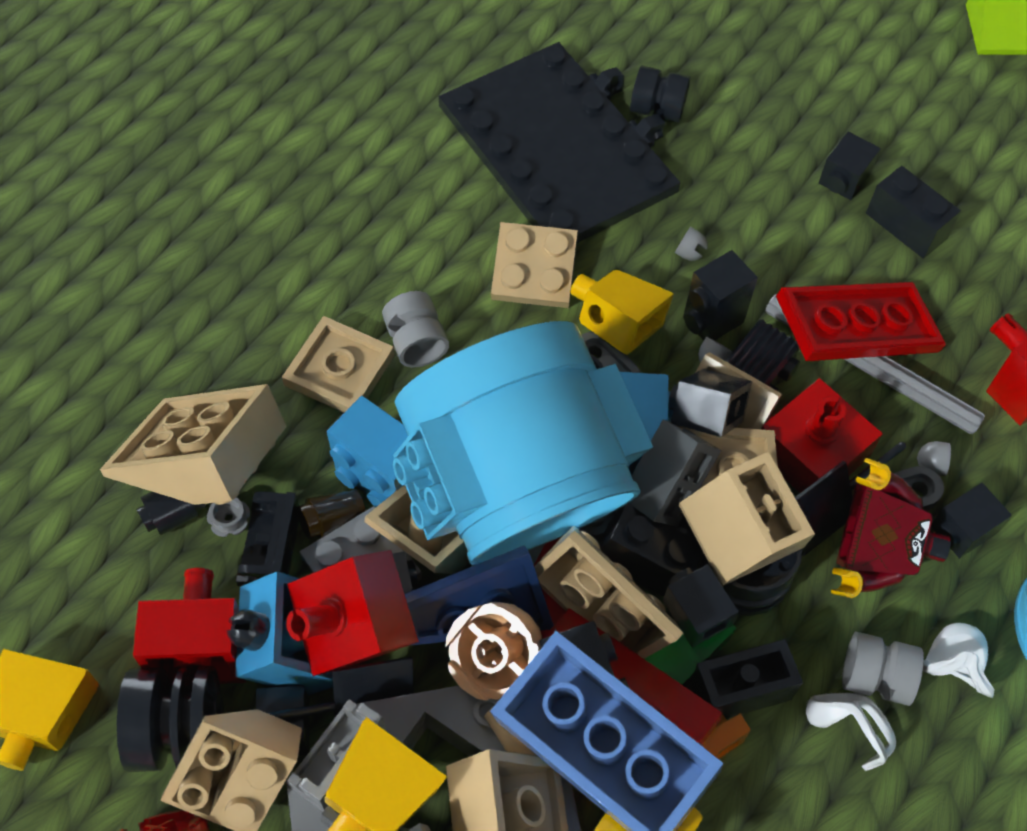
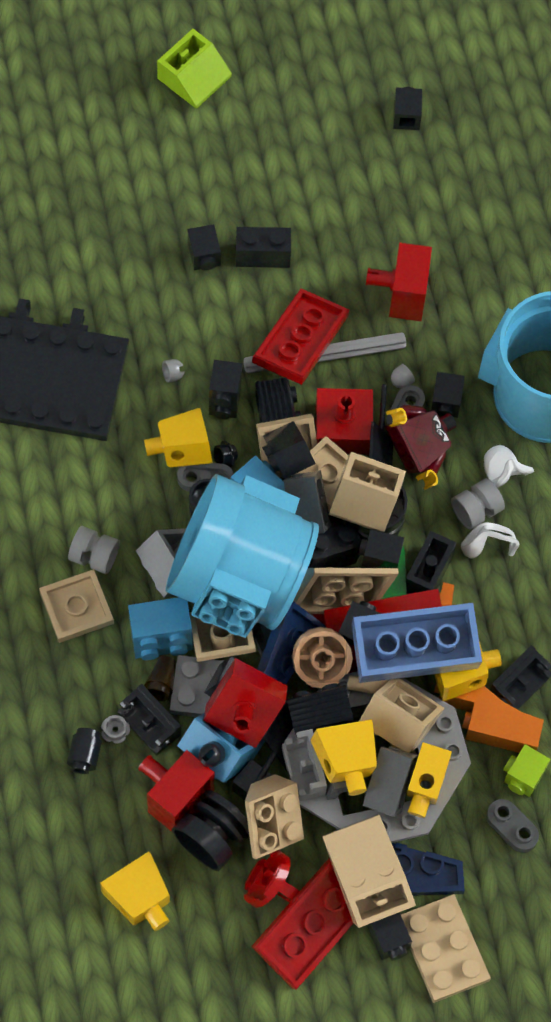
camera: 50 degrees left, 5 degrees up
(200, 445) = (66, 708): tan slope -> none
(424, 709) = (320, 708): none -> black brick
(534, 265) = (108, 457): tan plate -> none
(654, 361) = (225, 454): none -> black plate
(660, 93) = (60, 295): black wheel -> none
(715, 348) = (248, 420): light grey hinge -> none

